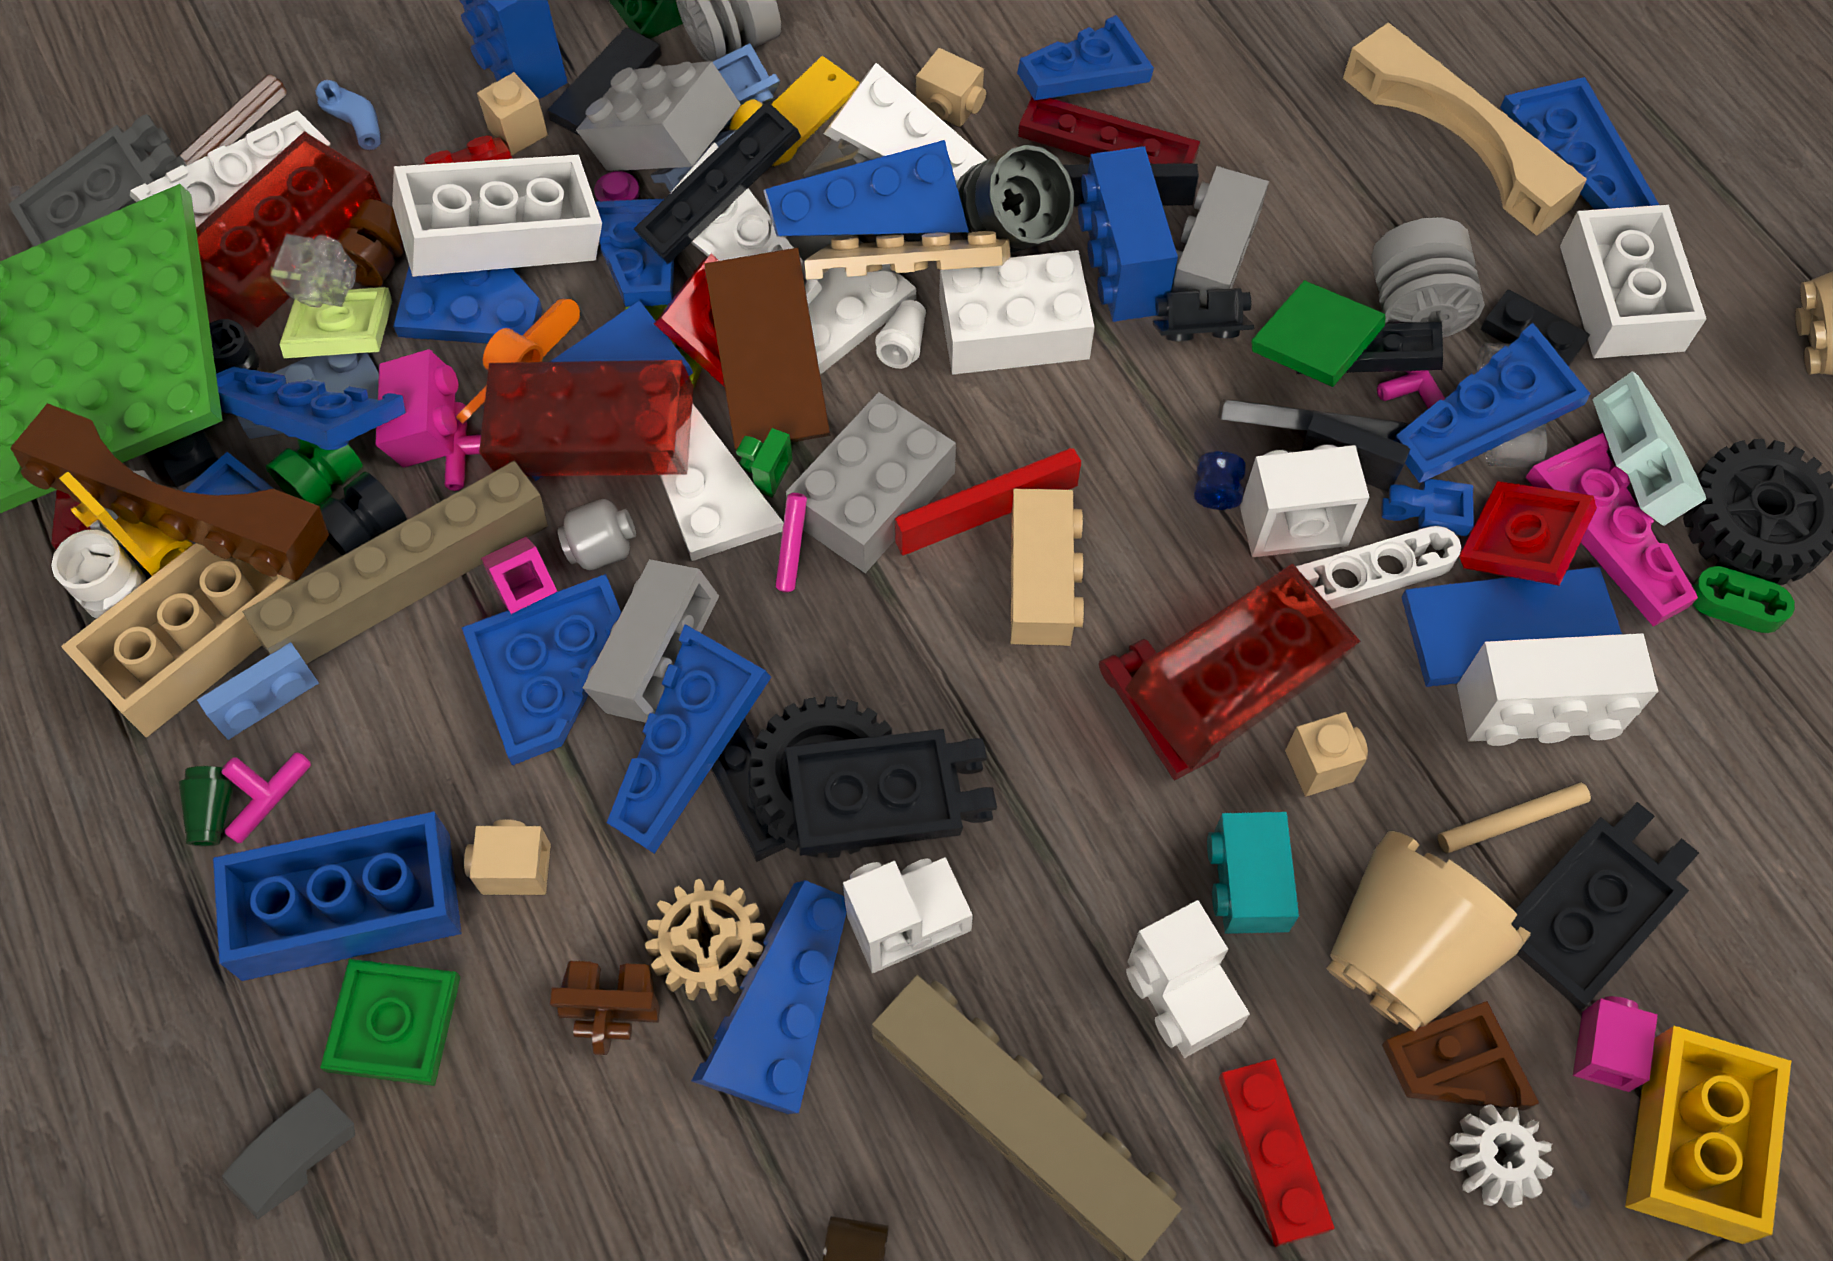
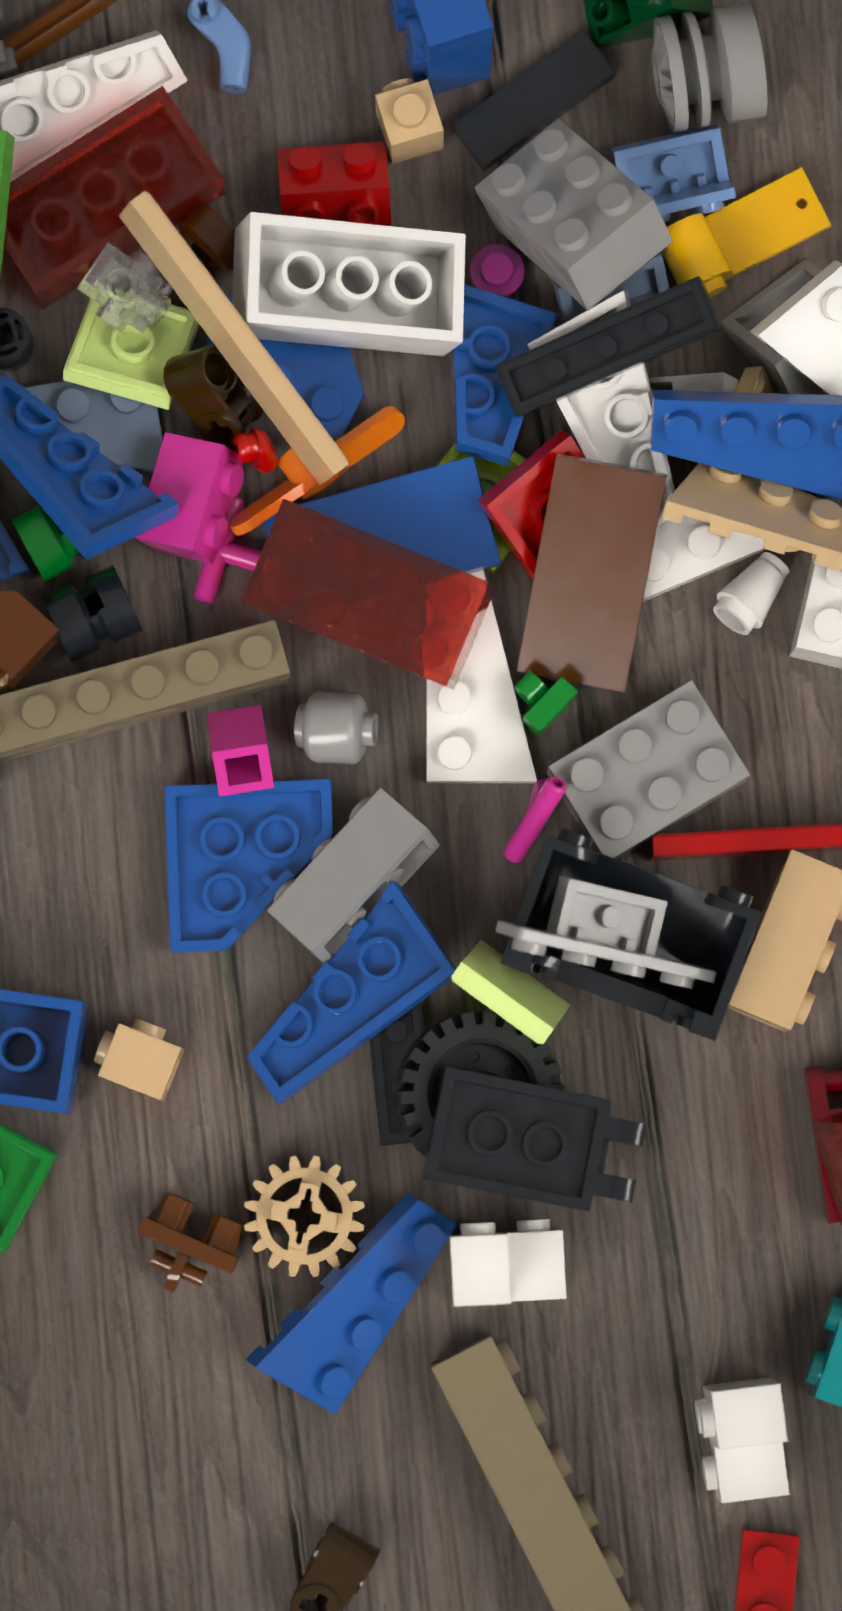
camera: 20 degrees right, 20 degrees up
(410, 262) = (233, 337): none -> tan tile
(411, 321) = (211, 394): none -> dark brown piece
(461, 347) = (256, 450): none -> red arm
(820, 676) = (510, 992): none -> yellowish green tile
(883, 581) = (605, 924): none -> light grey bracket
(906, 597) = (695, 930): none -> black windscreen

